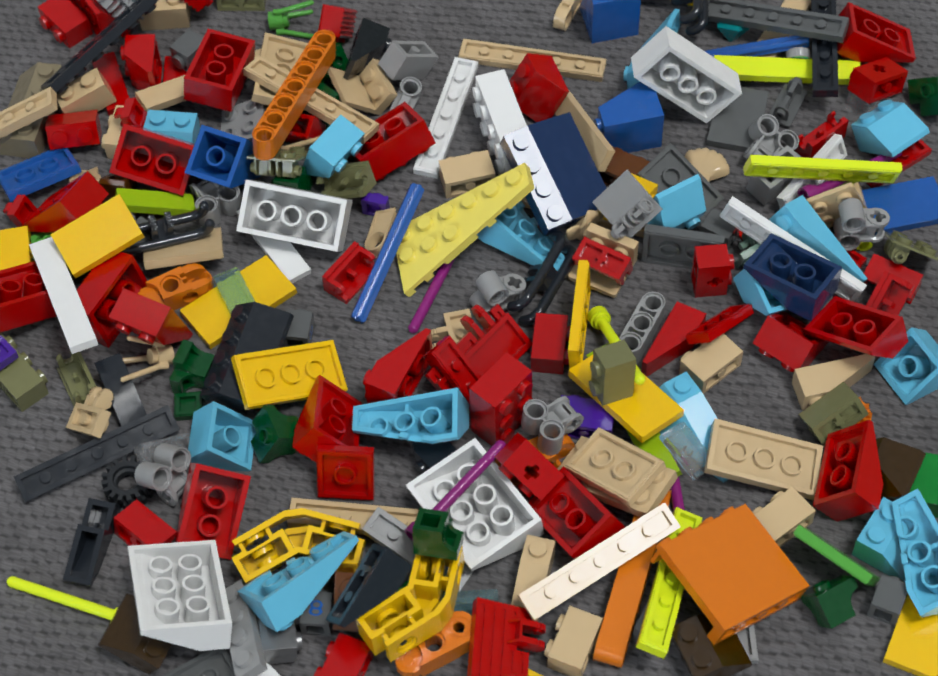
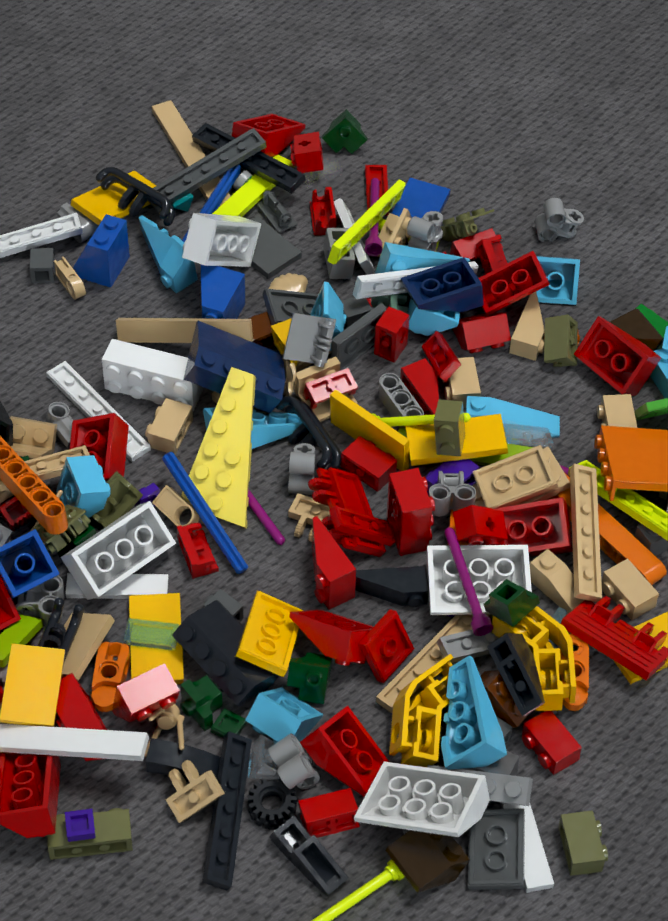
camera: 60 degrees left, 5 degrees down
(75, 377) = (140, 787): olive hinge -> none
(408, 60) = (32, 398): light grey brick -> none
(417, 418) = (385, 569): medium azure wedge -> none
(511, 56) = (93, 329): tan tile -> none
(538, 86) = (140, 328): red slope -> none
(763, 458) = (565, 399): tan plate -> none
(769, 142) = (306, 240): light grey piece -> none
(888, 129) = (357, 172): medium azure slope -> none

